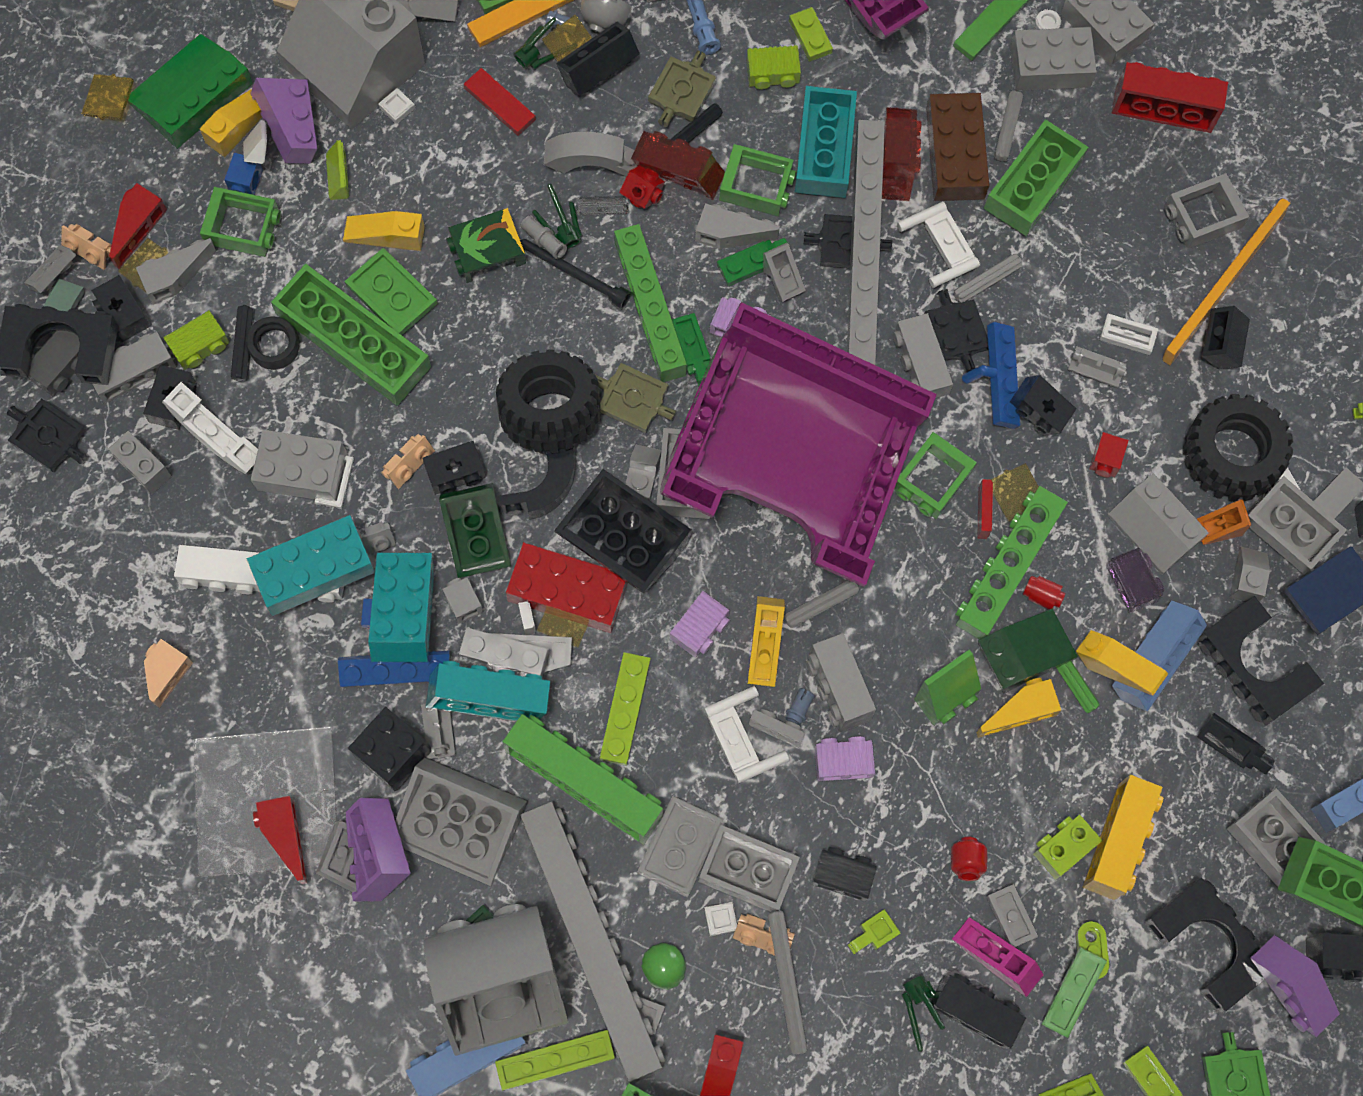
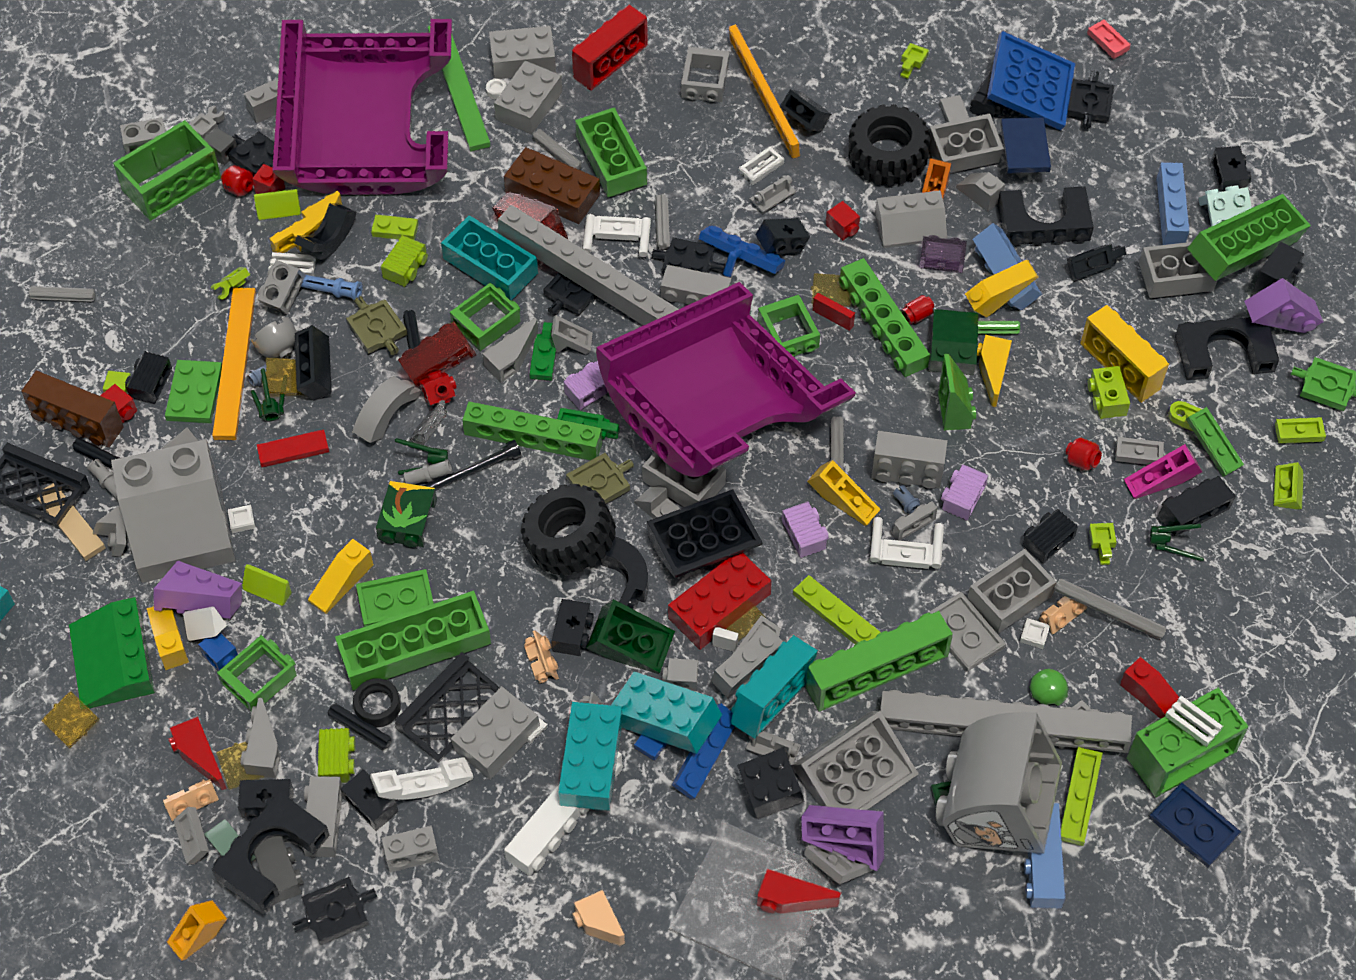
camera: 55 degrees left, 15 degrees down
(306, 386) = (430, 698): none -> black fence

